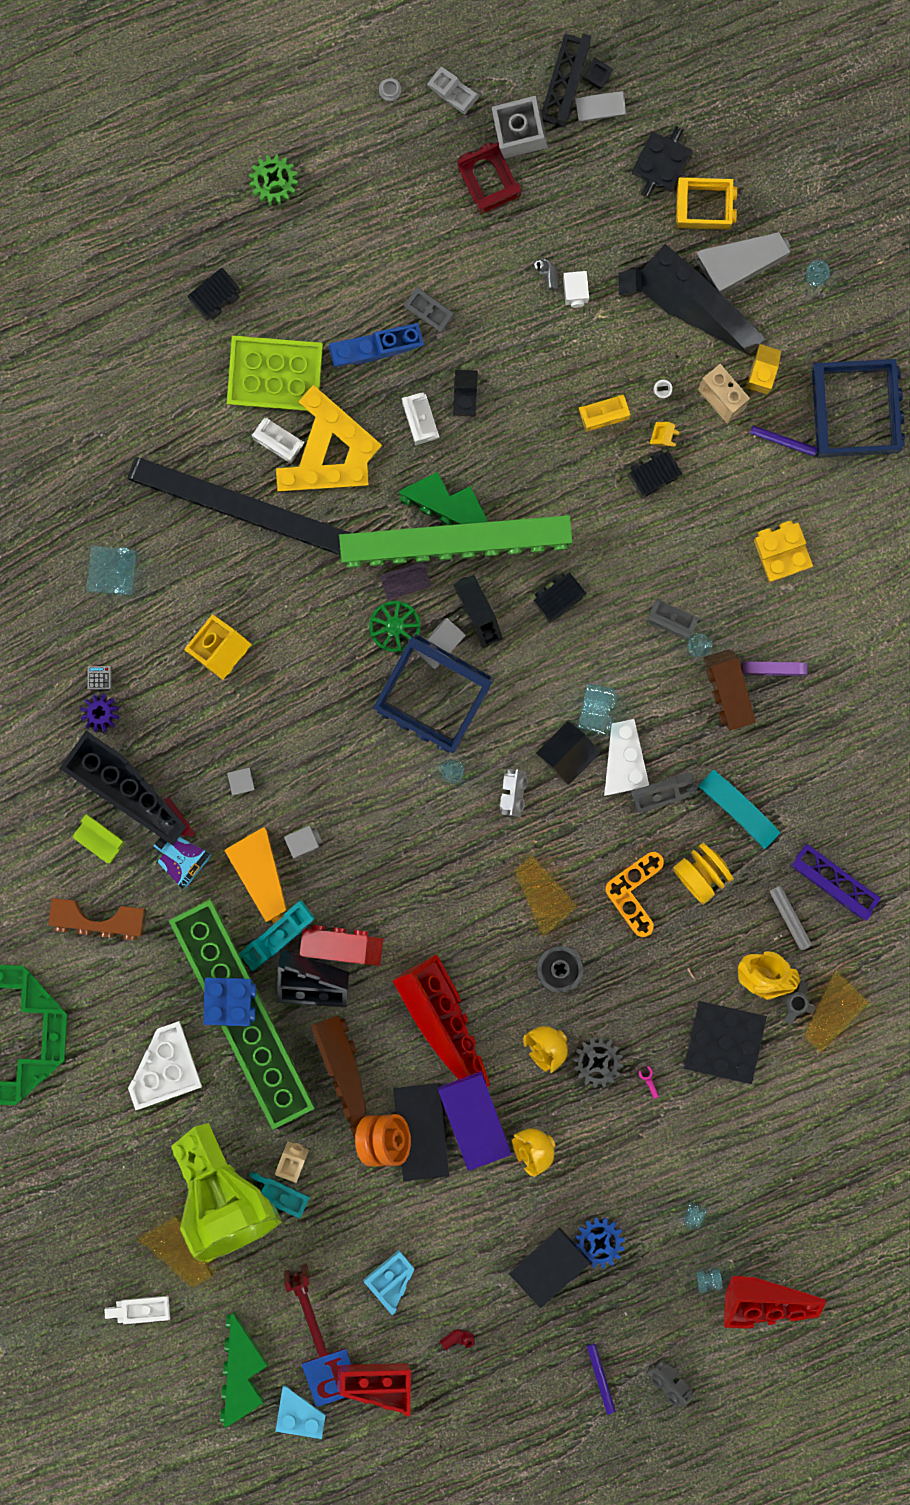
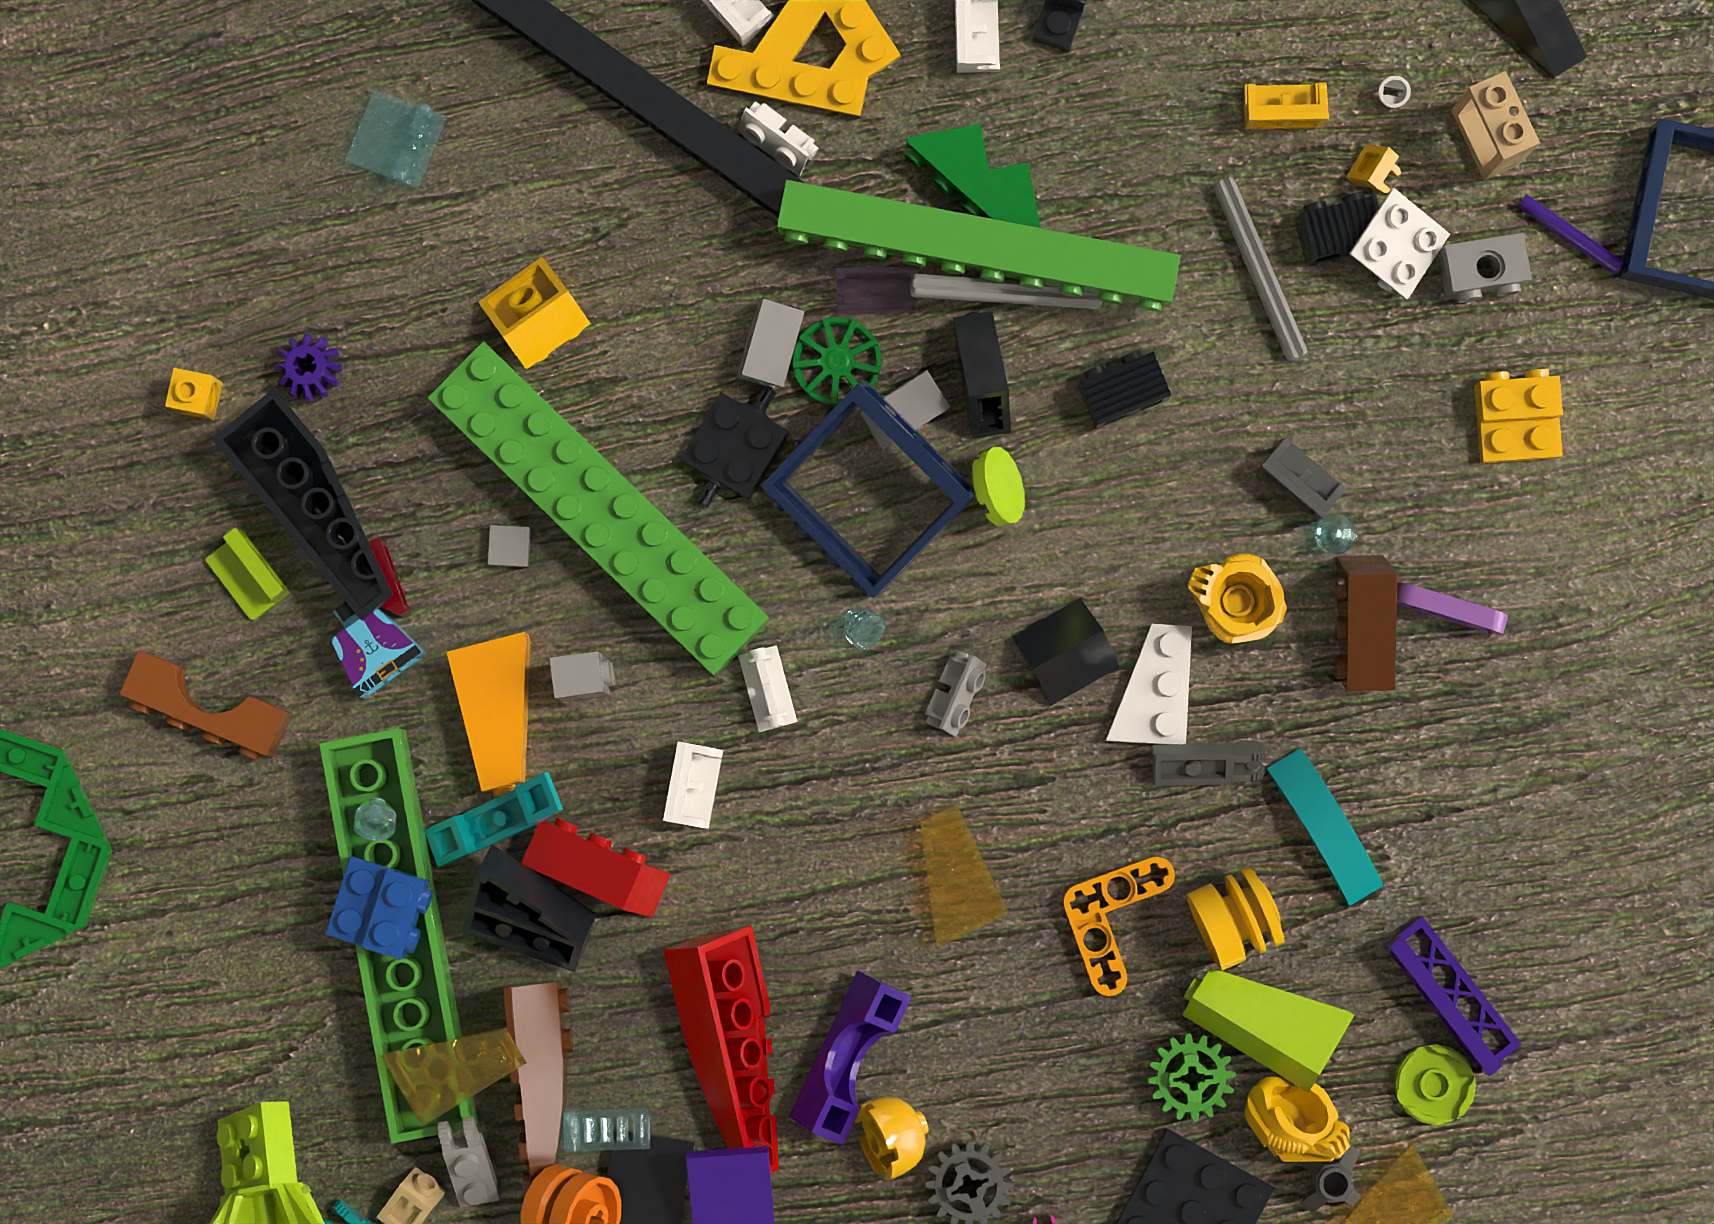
camera: 20 degrees right, 0 degrees up
(40, 746) = (194, 394): none -> yellow brick
(99, 677) = (325, 309): tile -> none
(165, 1068) = (246, 988): white plate -> none
(213, 954) = (375, 820): none -> clear light blue tile
(286, 746) = (599, 509): none -> bright green brick
(294, 1080) = (451, 1071): none -> clear yellow wing
(315, 507) = (762, 128): none -> white hinge
(318, 1130) = (468, 1164): none -> light grey hinge
(351, 690) = (735, 446): none -> black plate
(354, 627) = (770, 344): none -> light grey hinge
(375, 1095) = (581, 1129): none -> clear light blue slope
(382, 885) = (693, 785): none -> white hinge
(408, 820) = (767, 688): none -> white hinge
(466, 564) = (990, 291): none -> light grey axle
(505, 671) = (998, 486): none -> lime tile
(506, 1035) = (828, 1096): none -> dark purple arch
(572, 965) = (946, 1033): dark grey brick -> none
(596, 709) = (1133, 592): clear light blue brick -> none
(616, 508) = (1260, 269): none -> light grey axle
(655, 696) = (1239, 598): none -> yellow helmet
(689, 473) = (1399, 244): none -> white hinge
(707, 978) = (1192, 1095): none -> bright green gear
(737, 927) = (1268, 1024): none -> lime slope
(750, 463) = (1505, 255): none -> light grey brick
(764, 369) = (1572, 107): yellow slope -> none
(790, 918) = (1361, 1034): light grey axle -> none
(839, 934) = (1434, 1084): none -> lime tile

